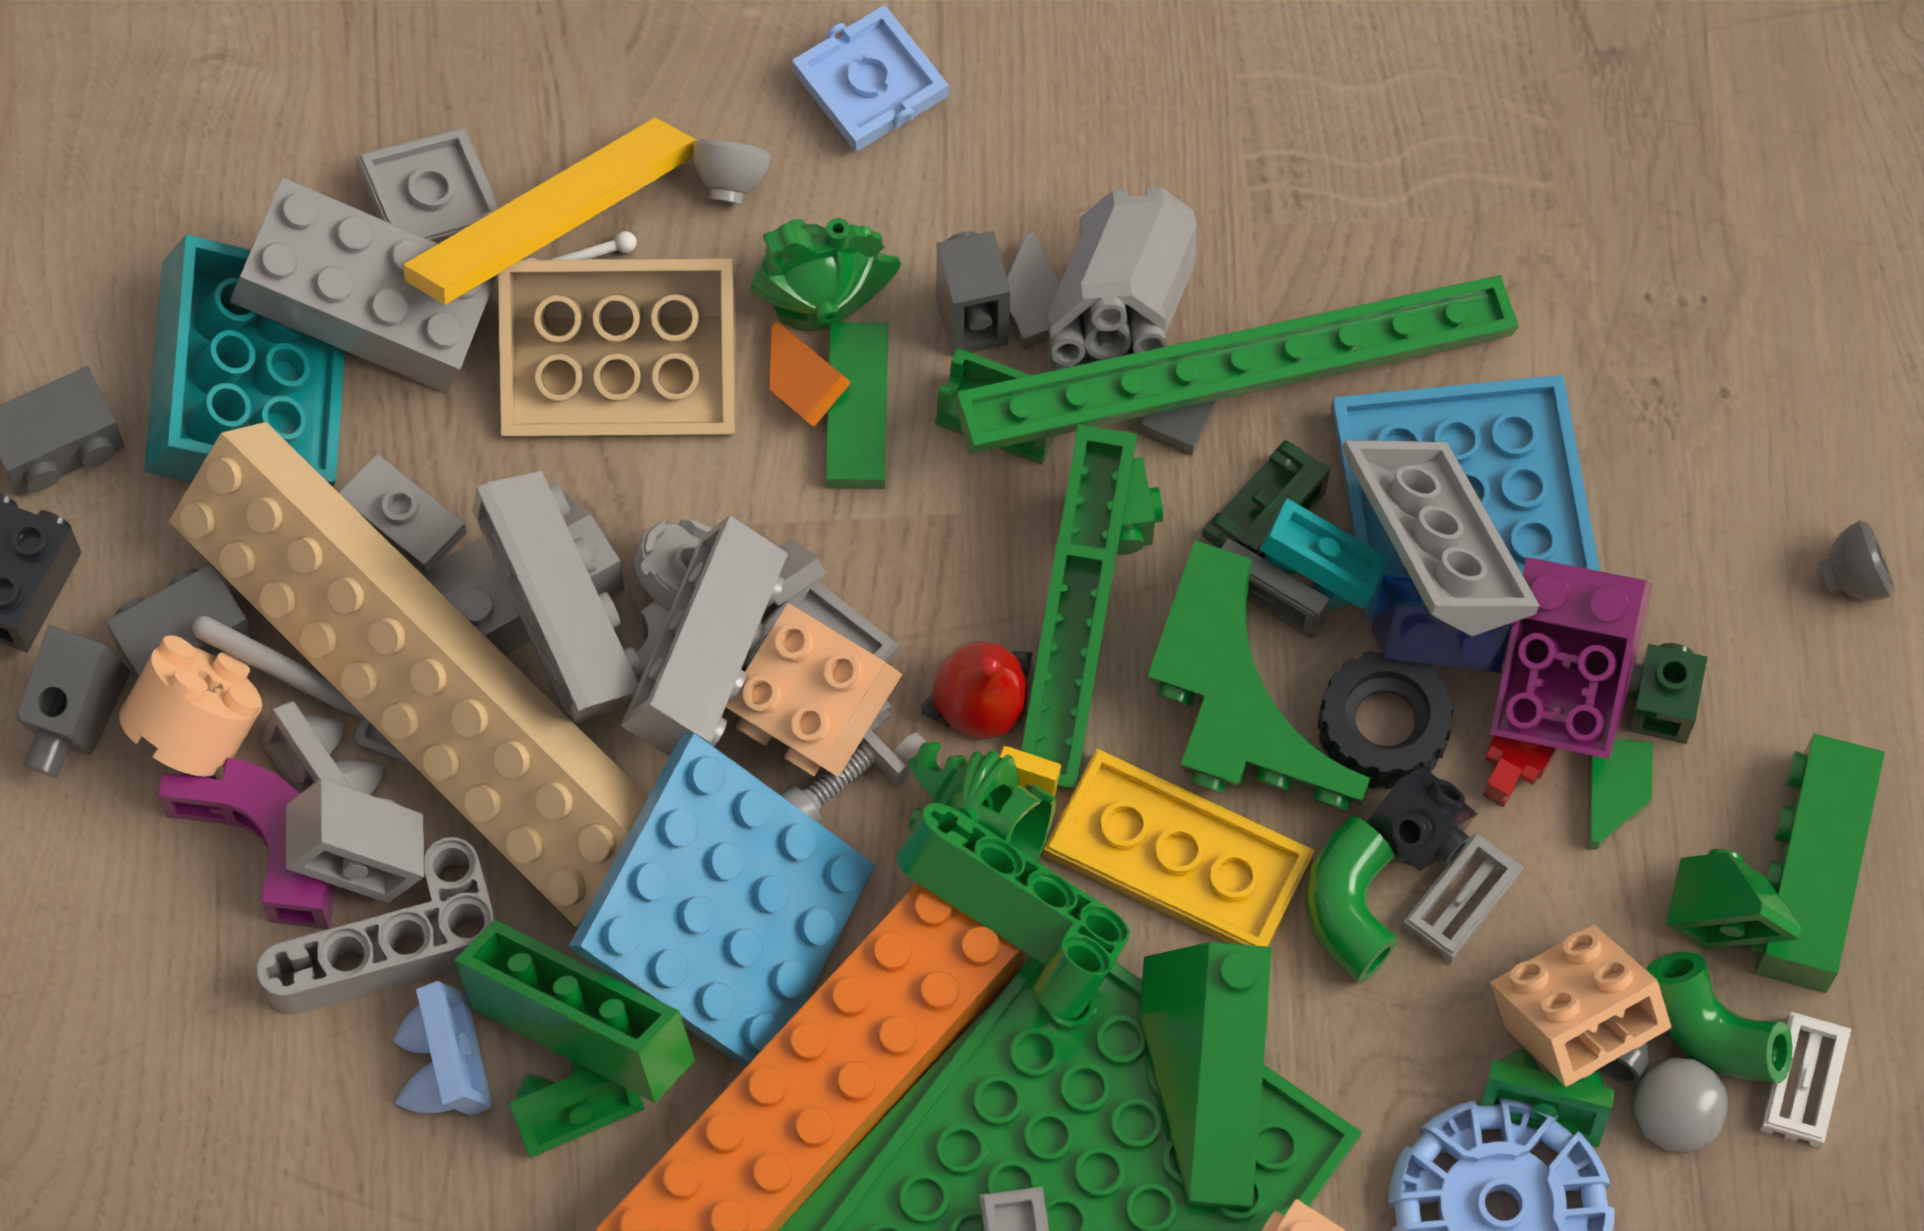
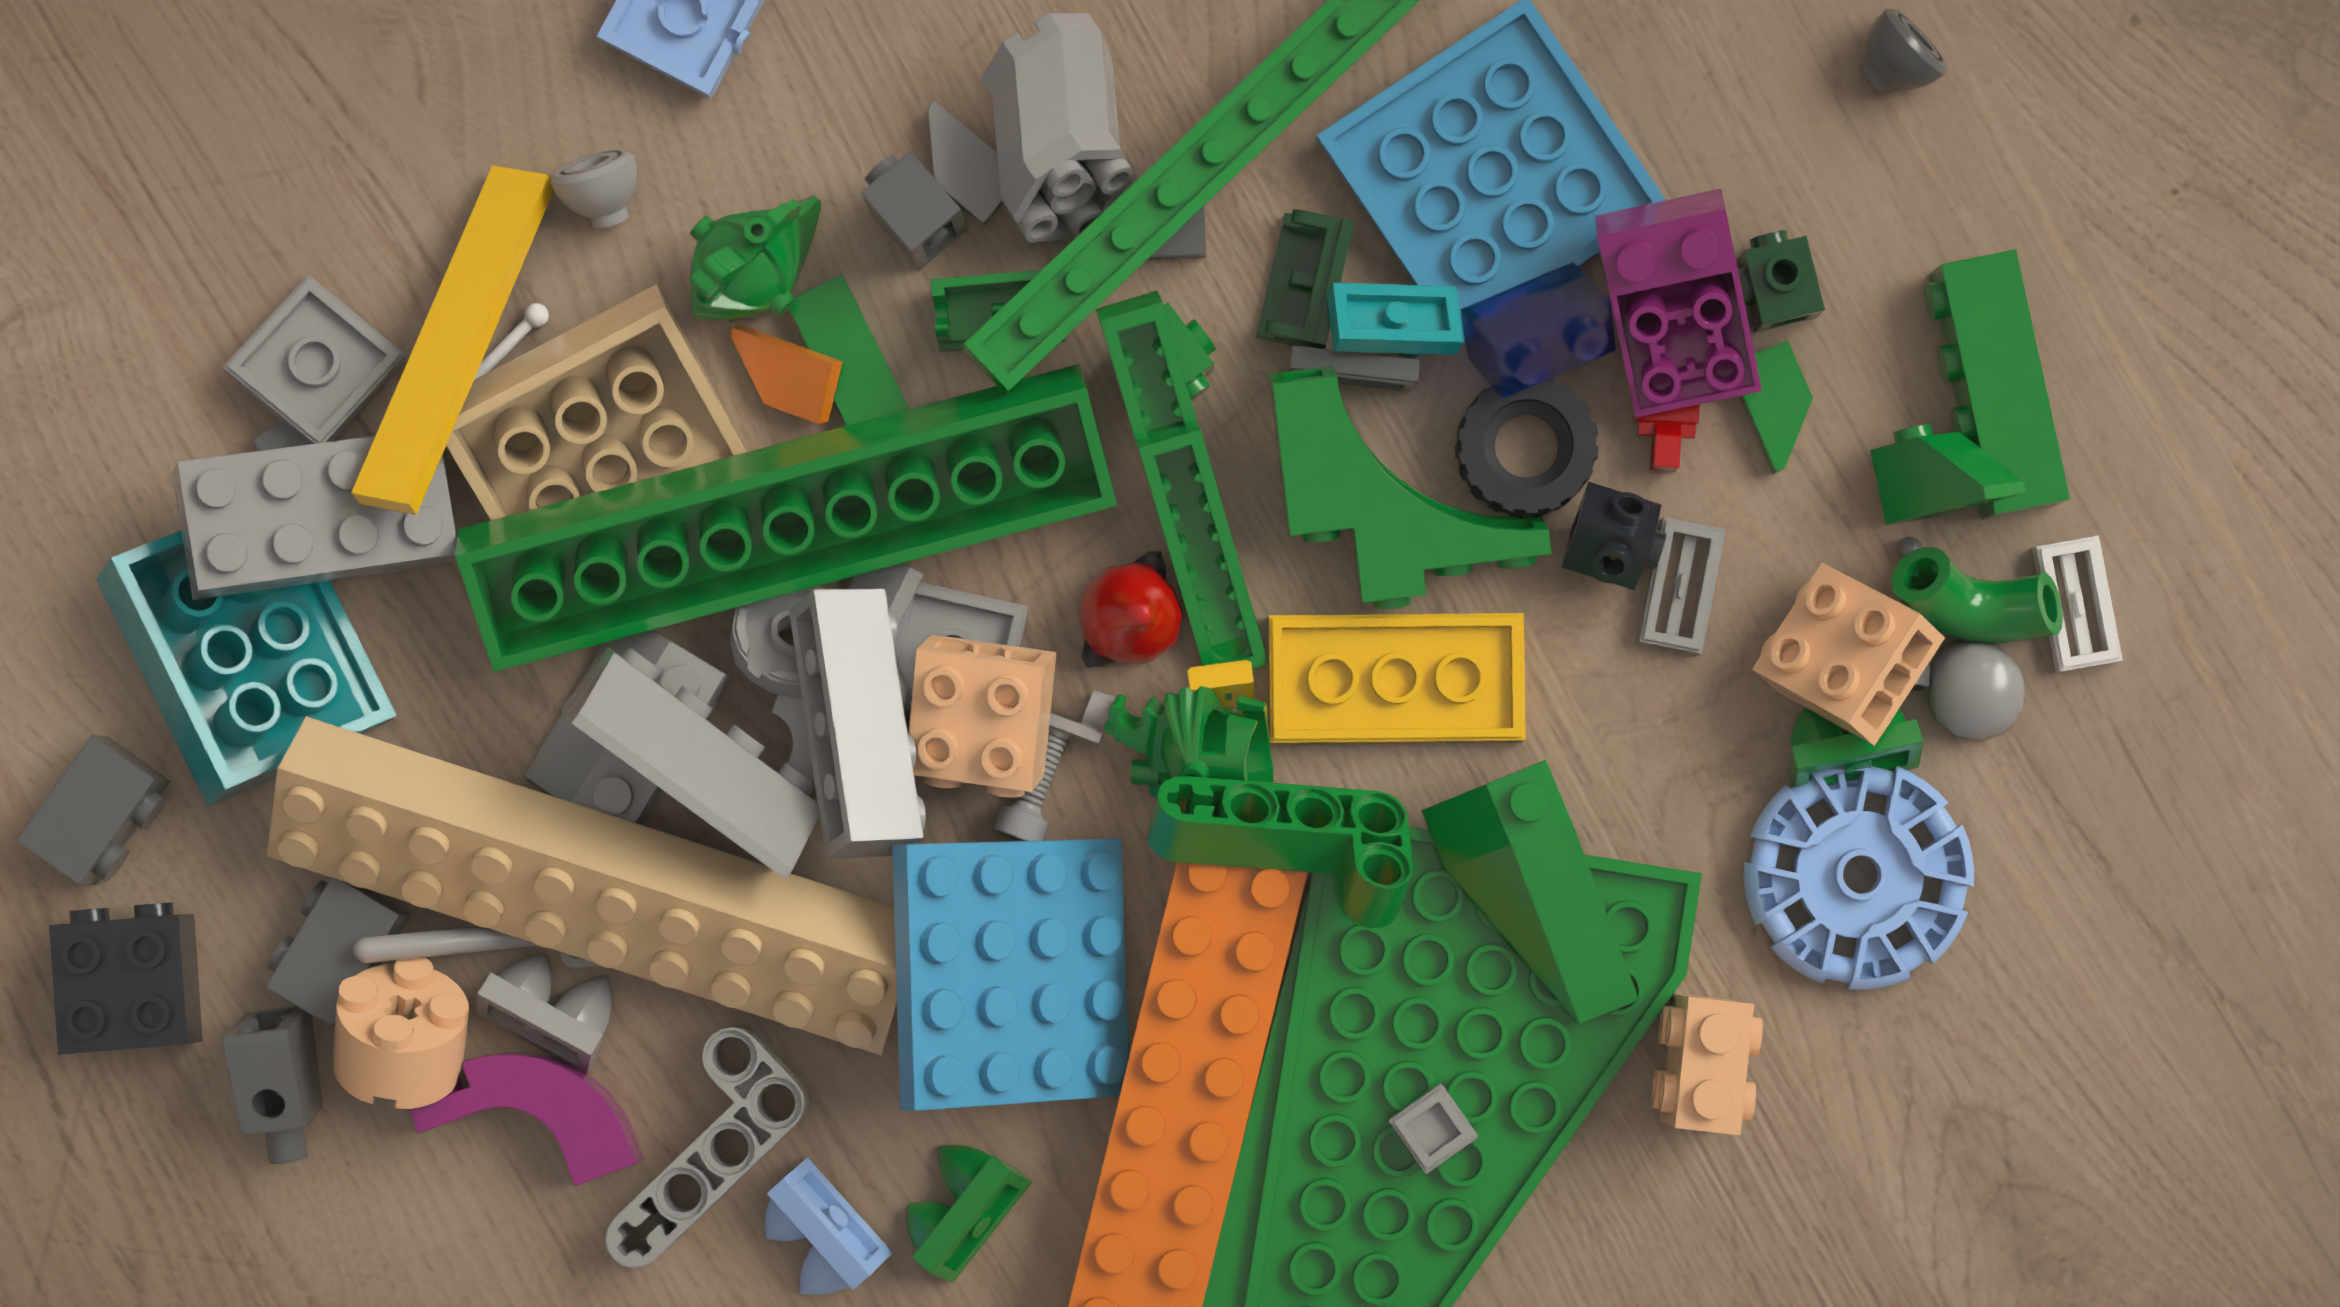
camera: 25 degrees left, 20 degrees up
(354, 840) = (629, 1085): light grey brick -> none
(404, 513) = (486, 730): light grey brick -> none
(575, 1010) = (930, 1147): green brick -> none
(761, 468) = (784, 518): none -> green brick
(1339, 903) = (1569, 651): green cylinder -> none
(1442, 533) = (1500, 247): light grey slope -> none

